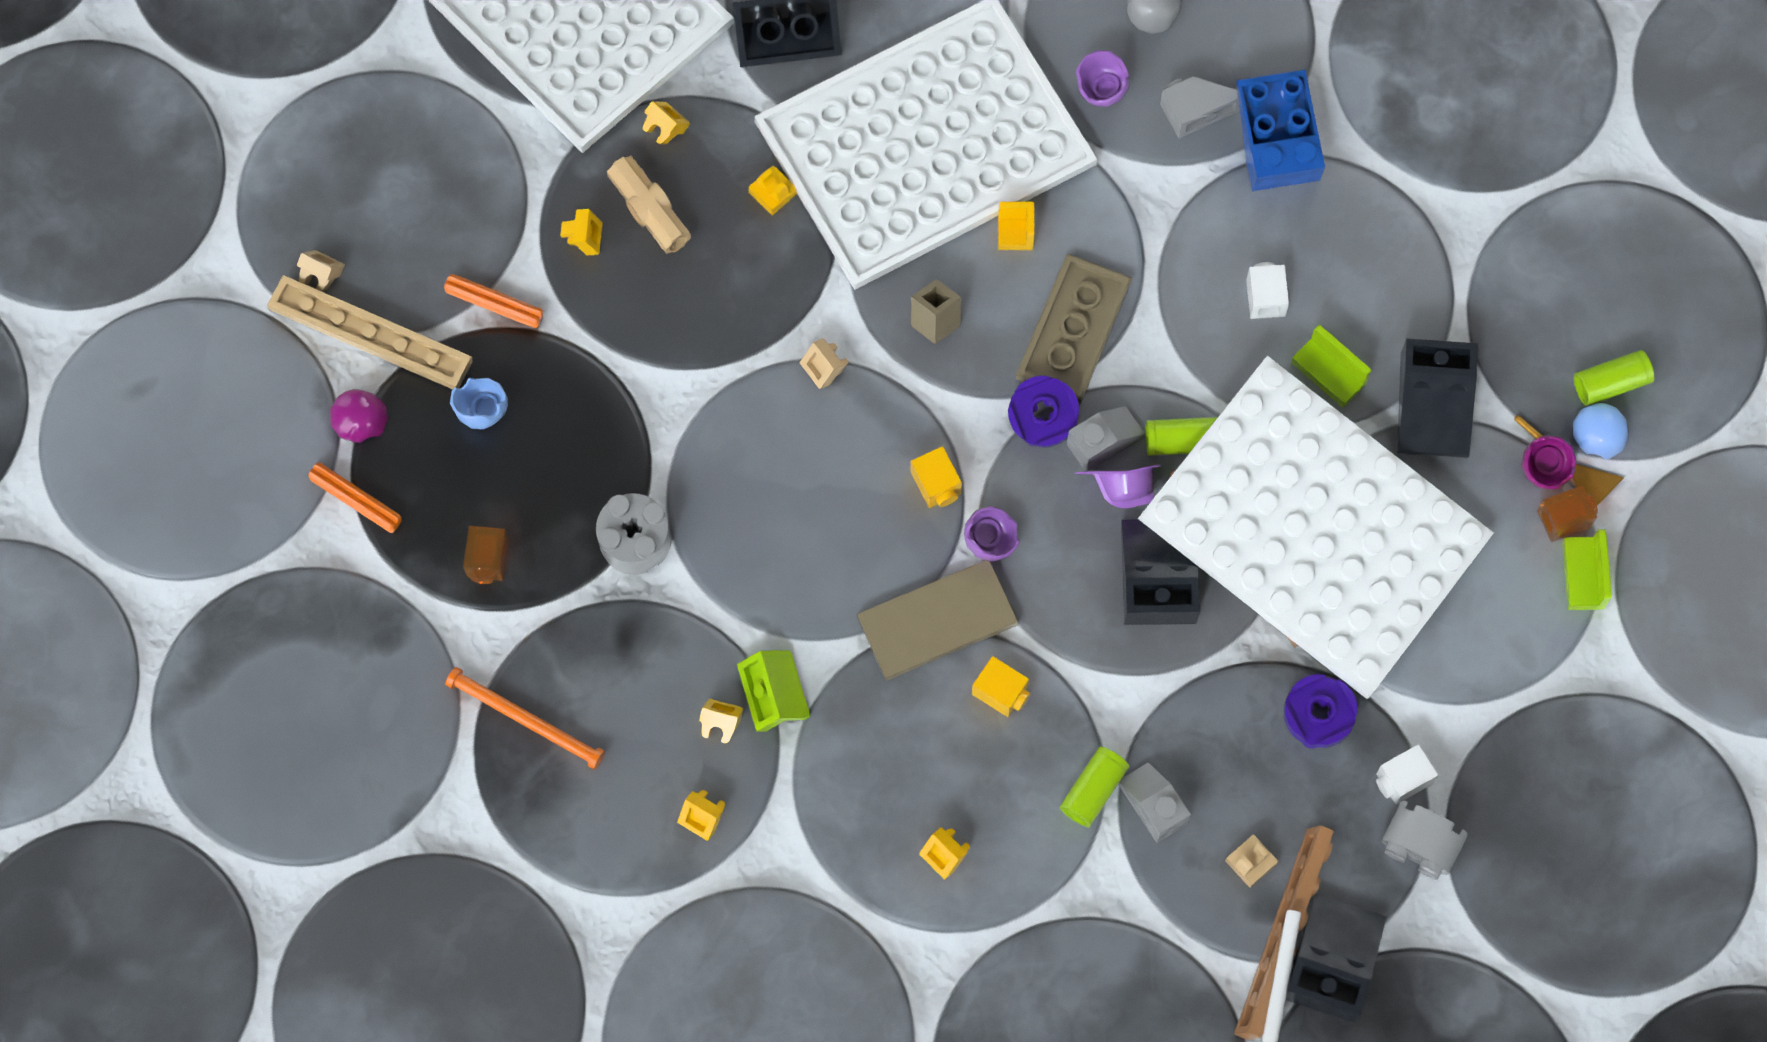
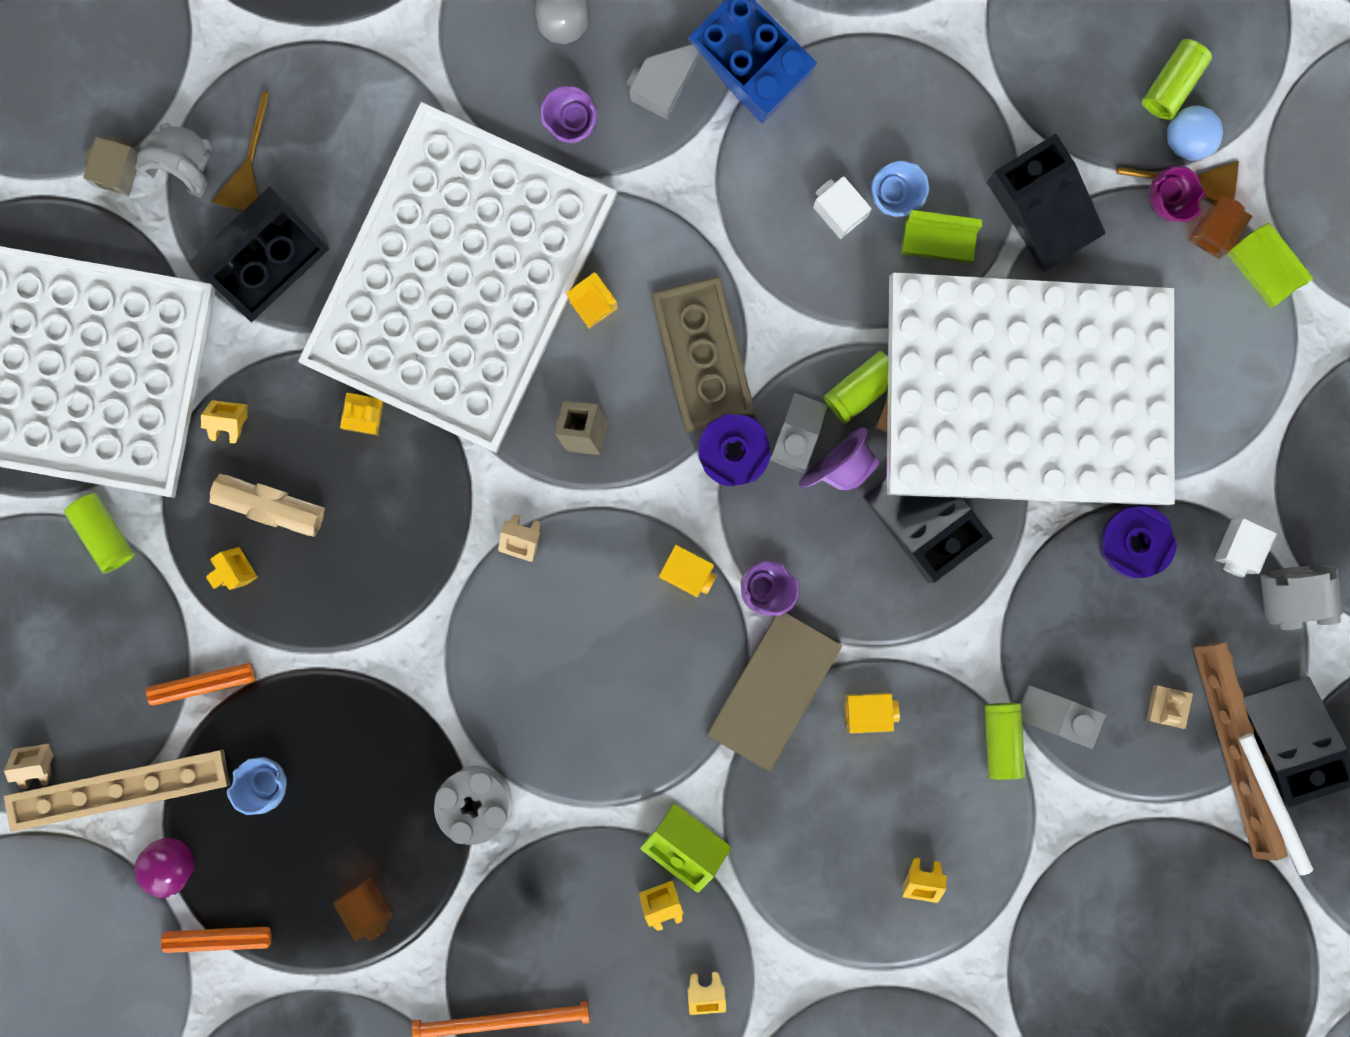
camera: 40 degrees left, 15 degrees up
(506, 137) = (99, 533): none -> lime pin
(1323, 305) = (899, 188): none -> light blue hair

